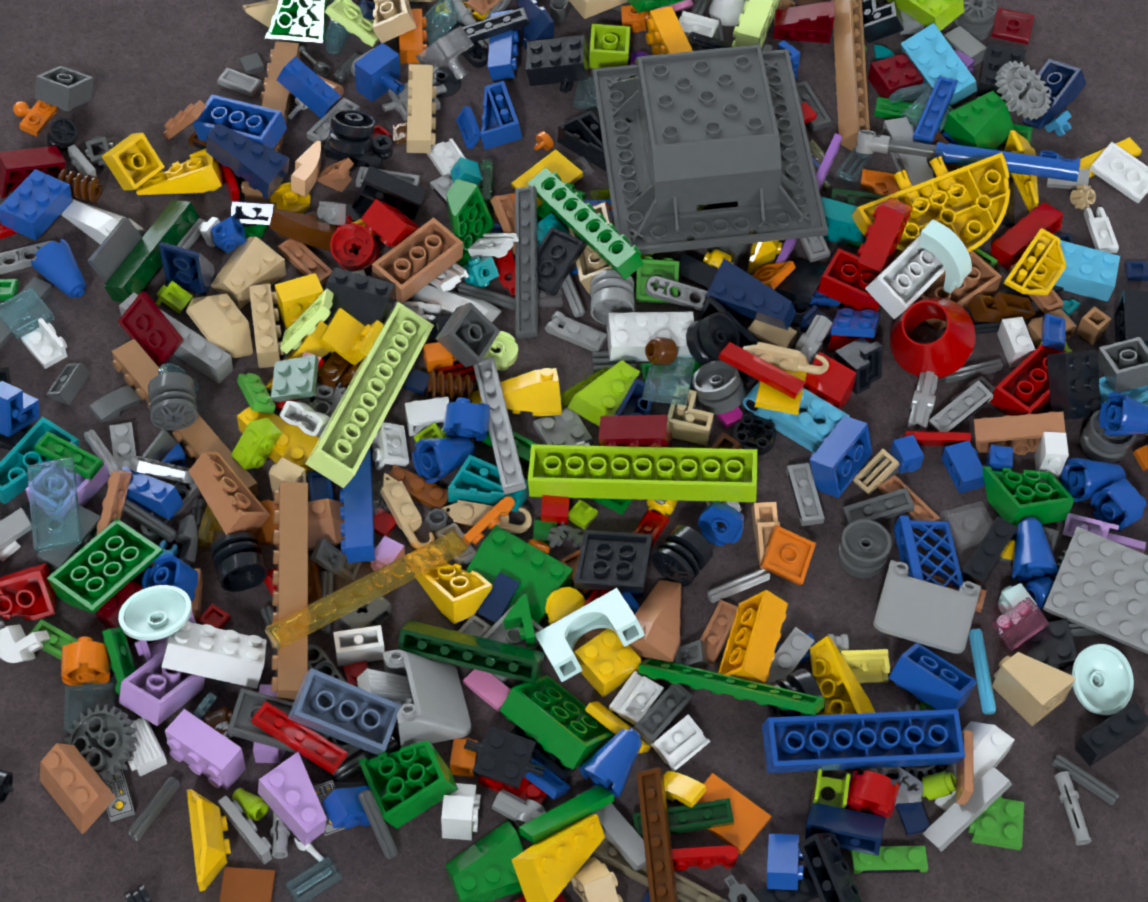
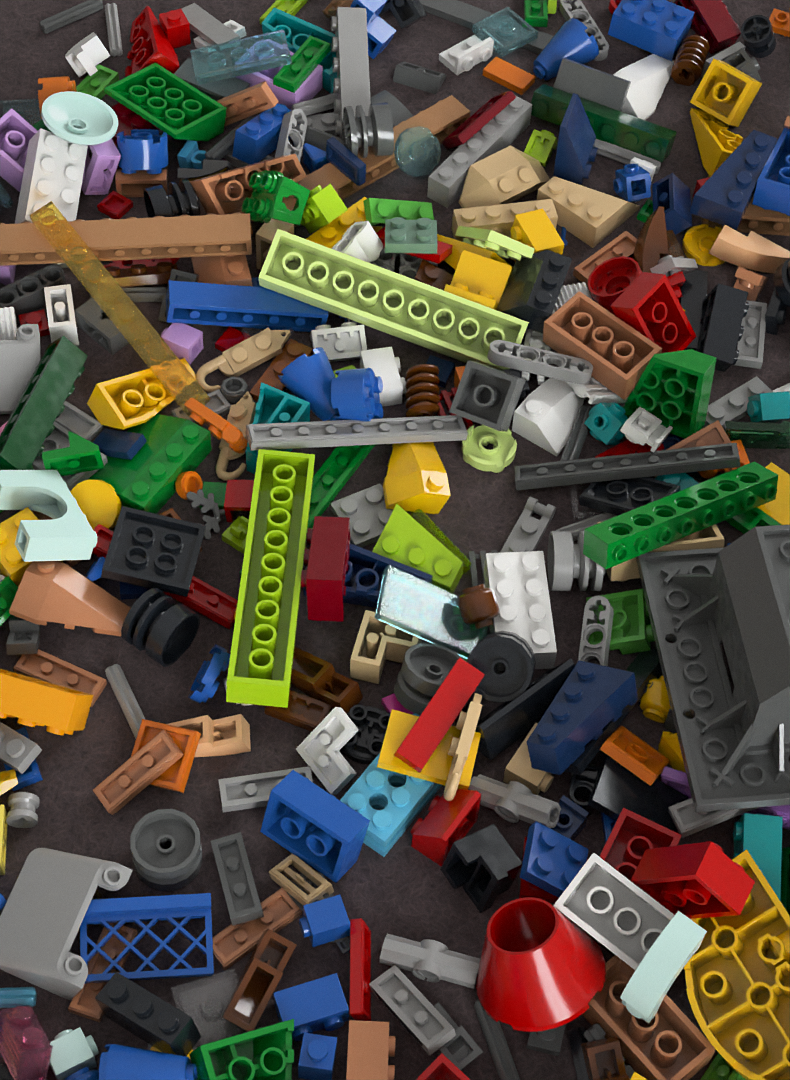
camera: 90 degrees right, 0 degrees up
(75, 317) = (508, 75): none -> orange tile
(86, 417) = (350, 62): none -> light grey brick
(198, 424) = (345, 161): none -> dark blue tile
(259, 468) = (267, 198): none -> green piece
(434, 299) = (510, 355): none -> light grey beam
(775, 457) = (322, 750): none -> white plate
(803, 569) = (138, 772): none -> nougat tile
(950, 494) = (258, 980): none -> reddish brown slope

